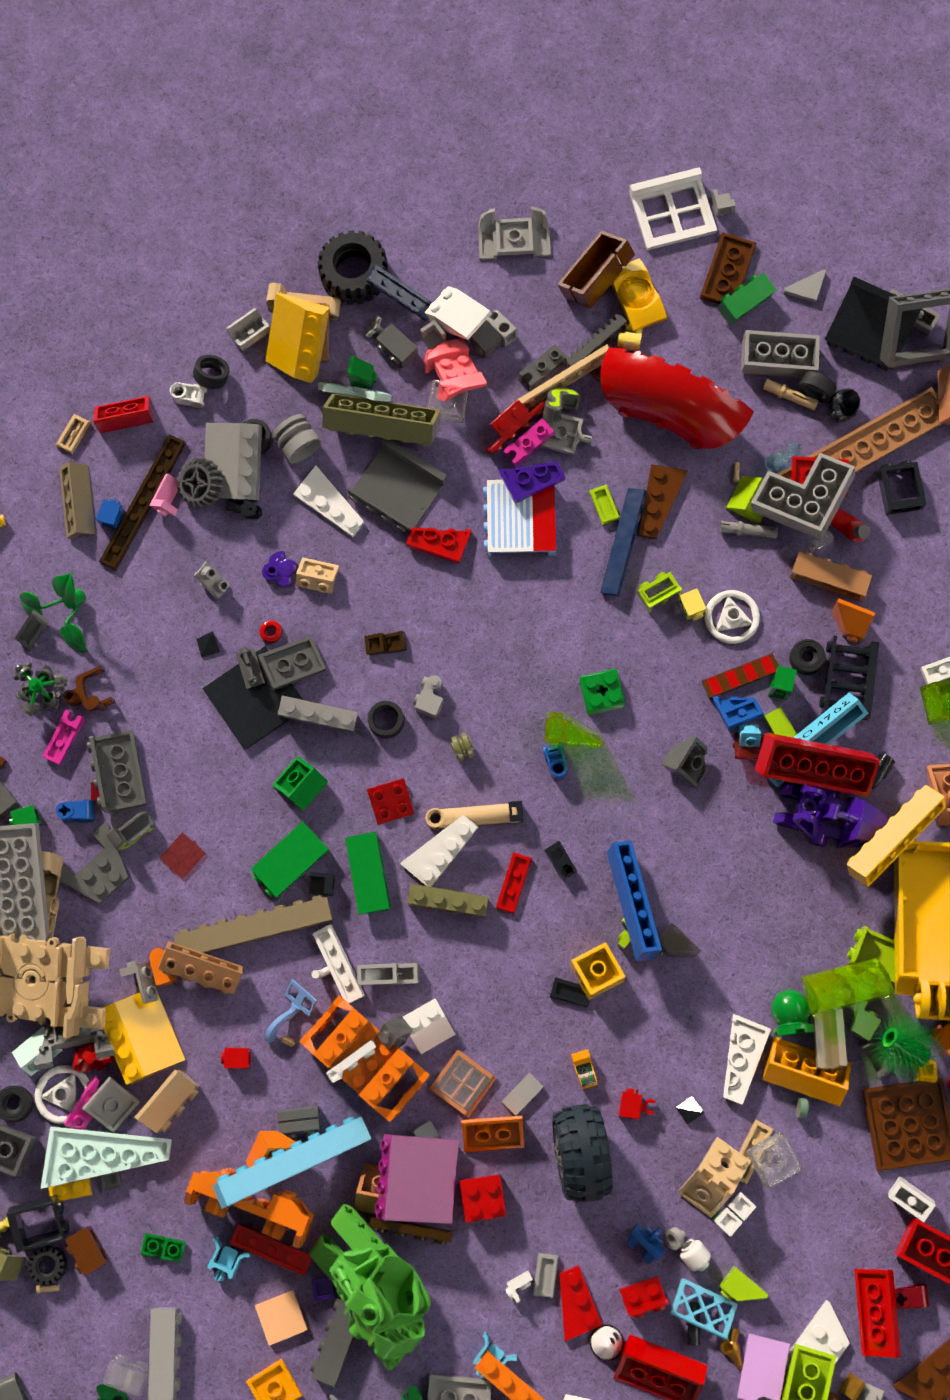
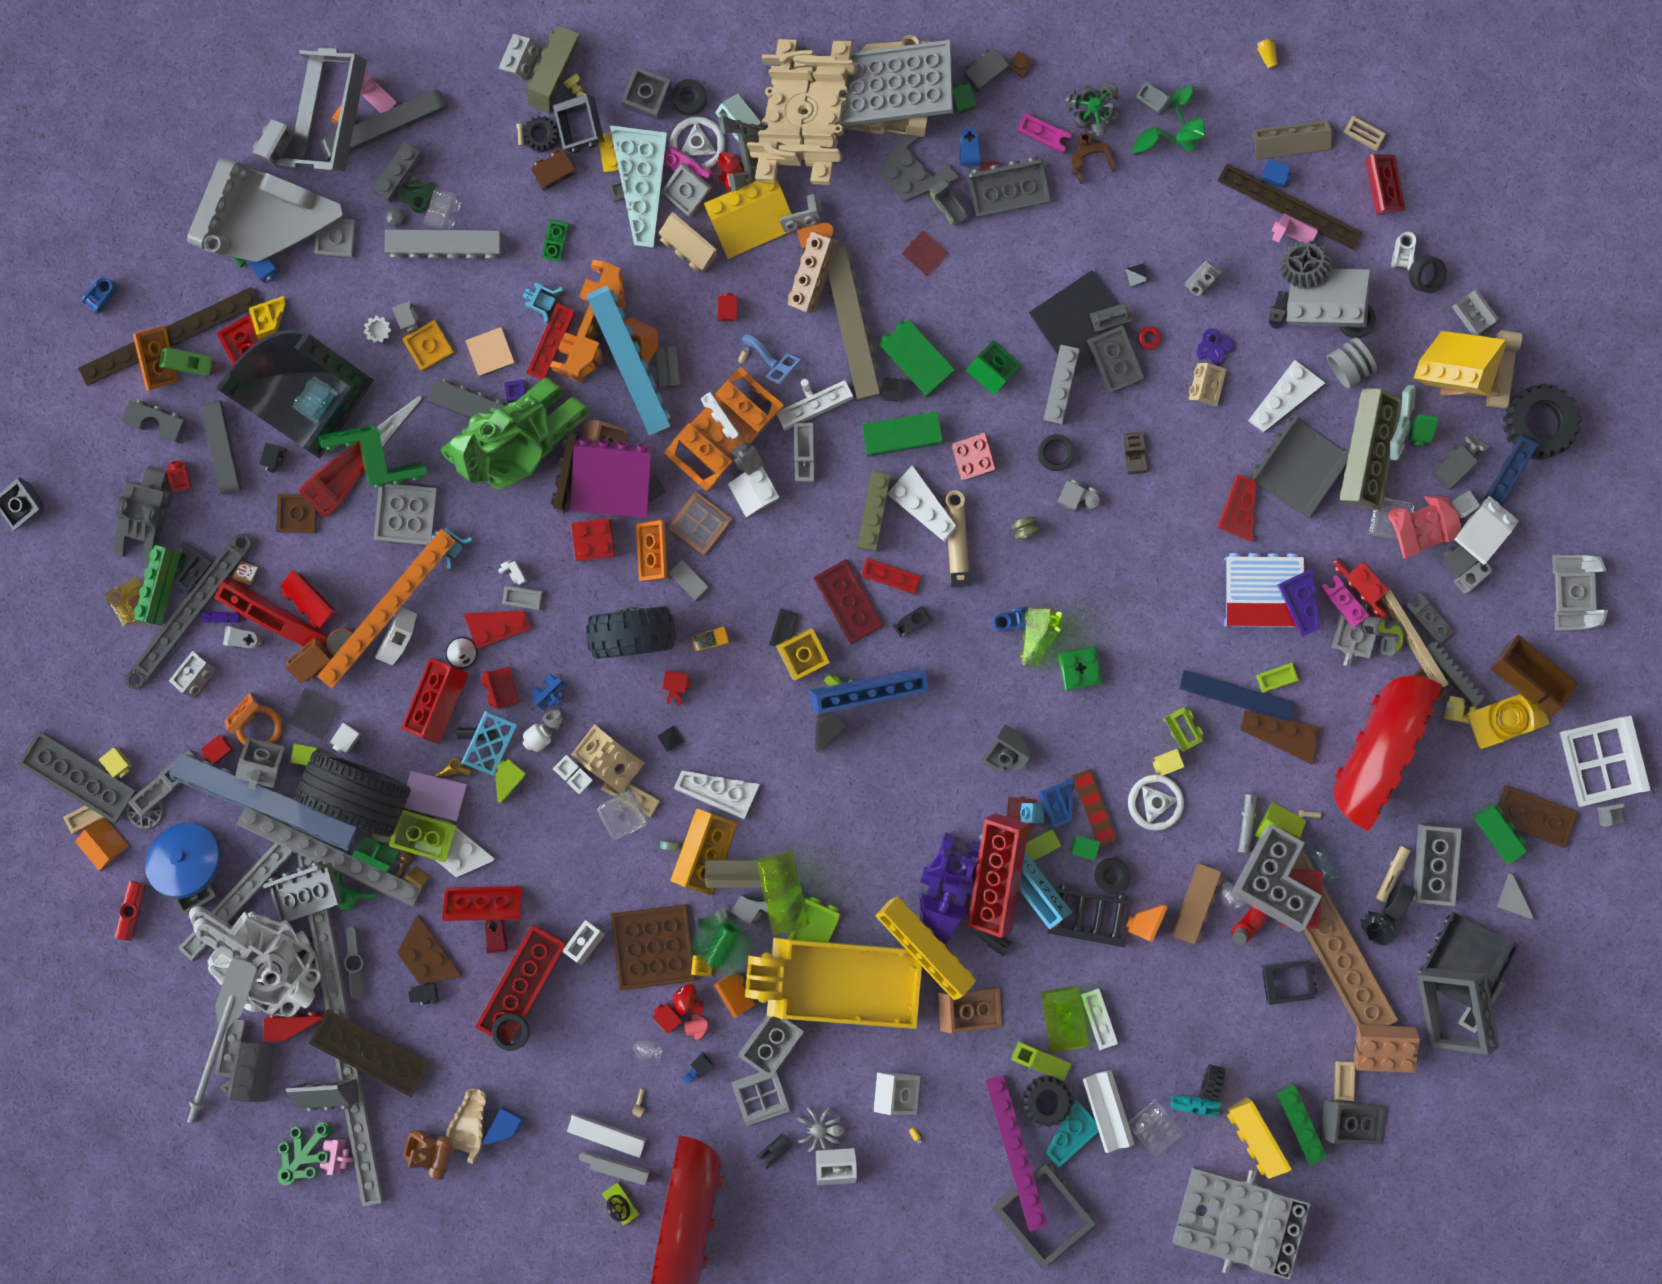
camera: 85 degrees right, 10 degrees up
(540, 926) = (848, 601): none -> dark red tile
(791, 1012) = (758, 838): green tile -> none

